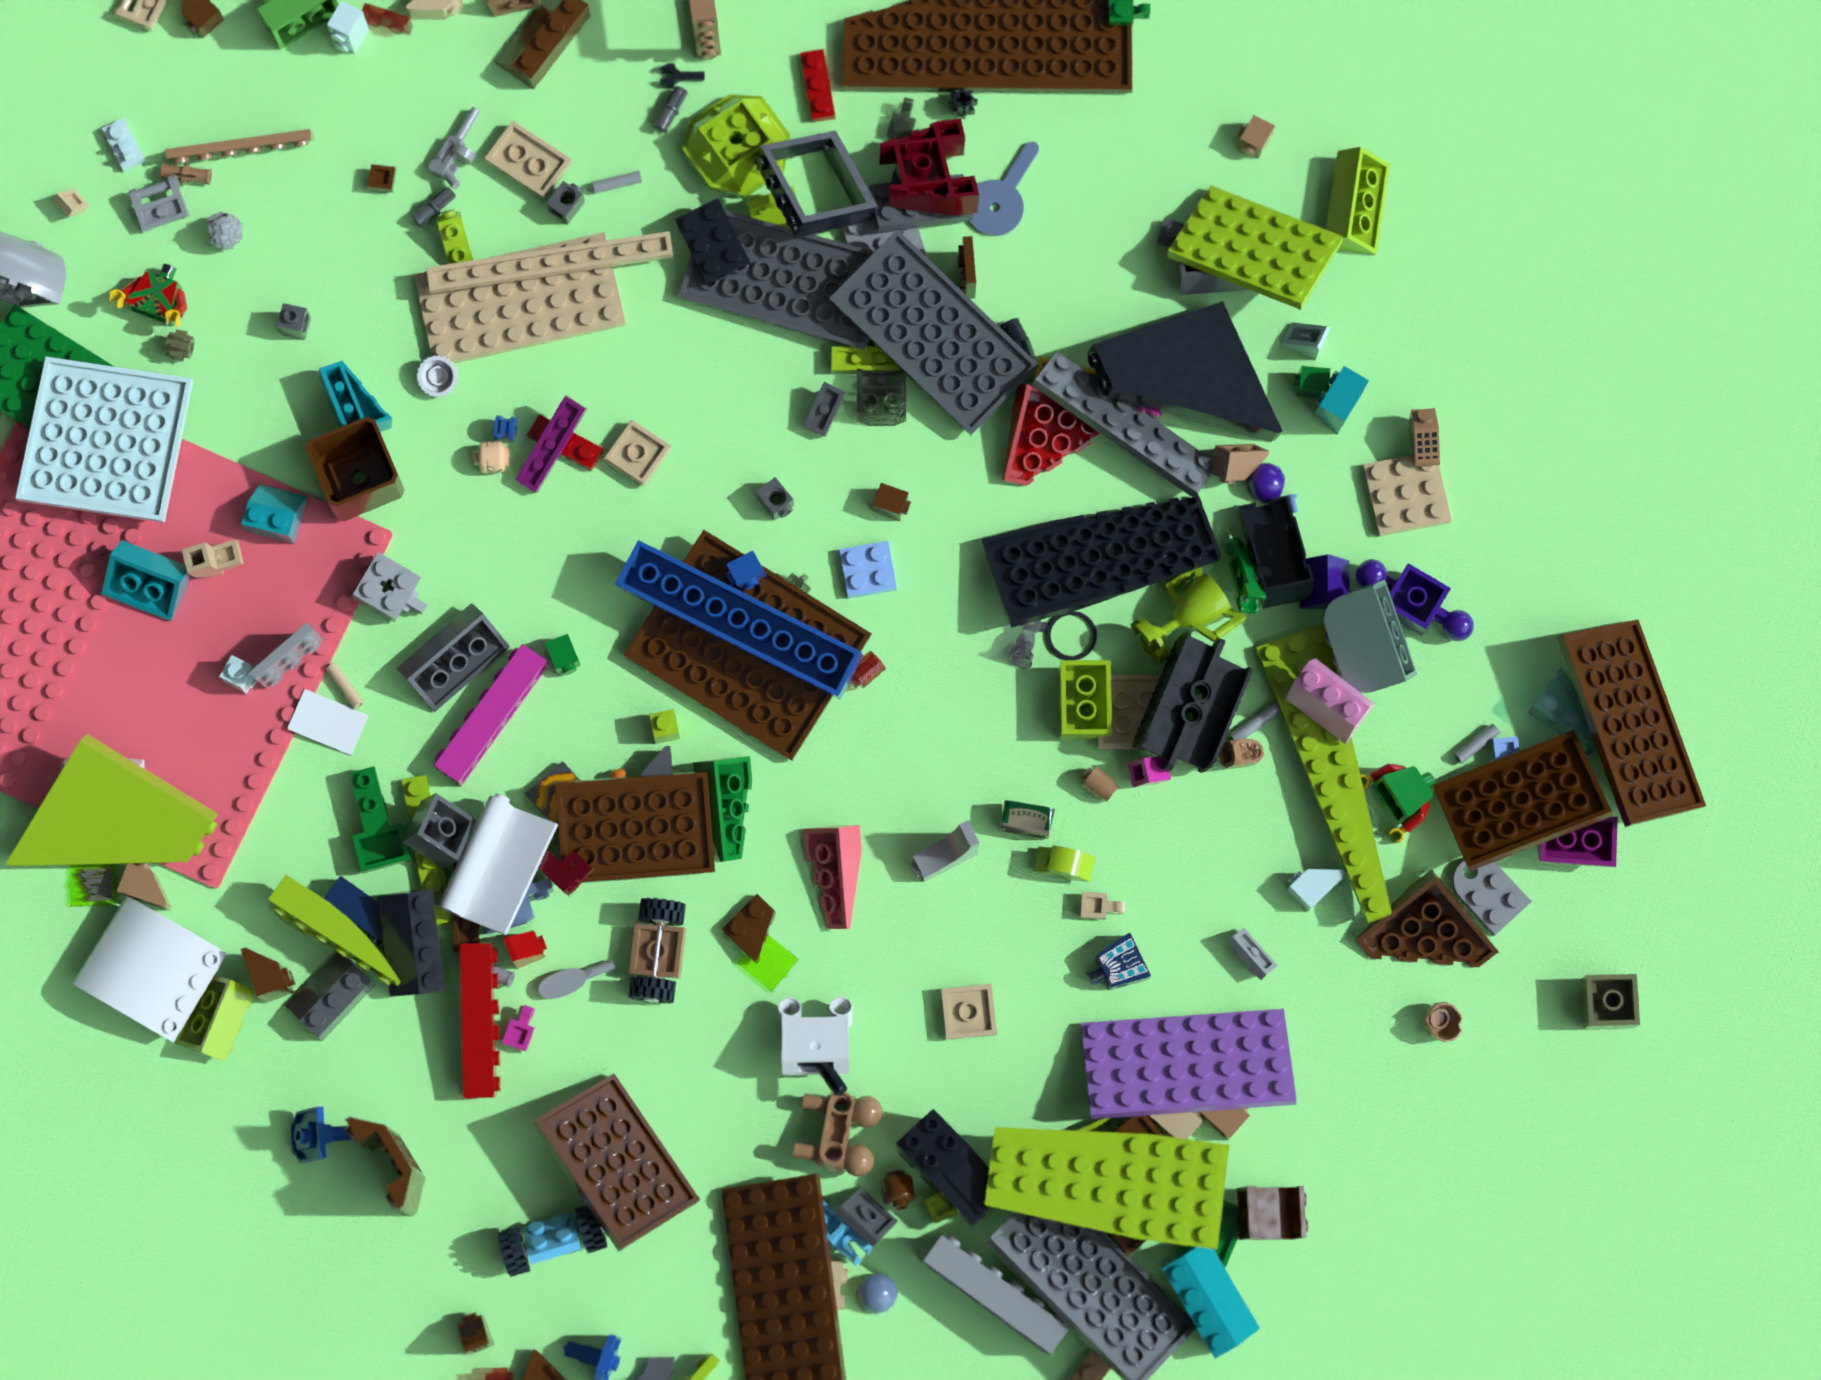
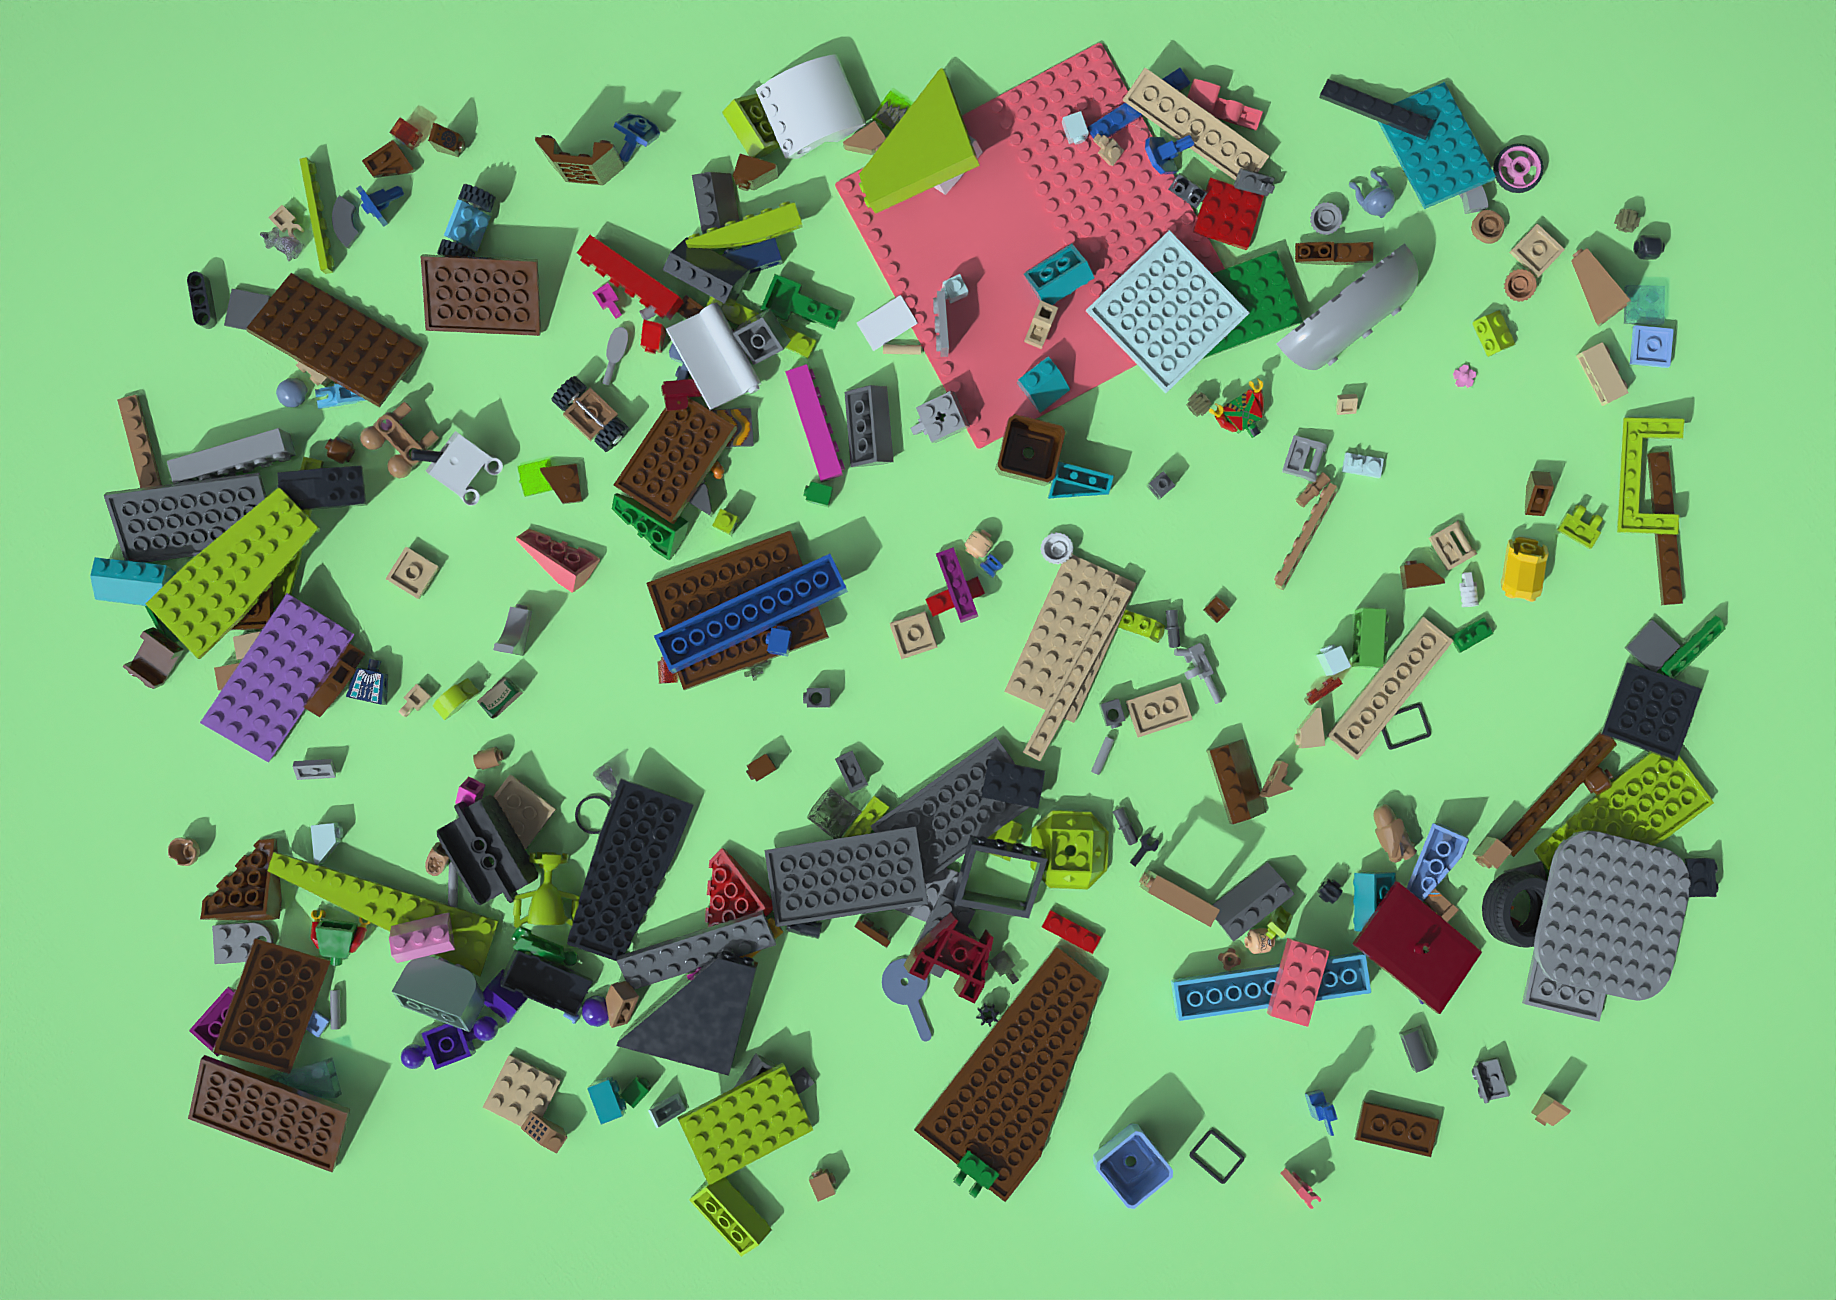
camera: 130 degrees right, 10 degrees up
(224, 230) = (1254, 485): light grey piece -> none
(866, 1216) = (336, 417): dark grey tile -> none
(868, 569) = (731, 721): light blue plate -> none
(1085, 699) = (543, 789): lime slope -> none
(1144, 1000) = (334, 680): none -> reddish brown slope
(1610, 1001) = (116, 961): olive brick -> none

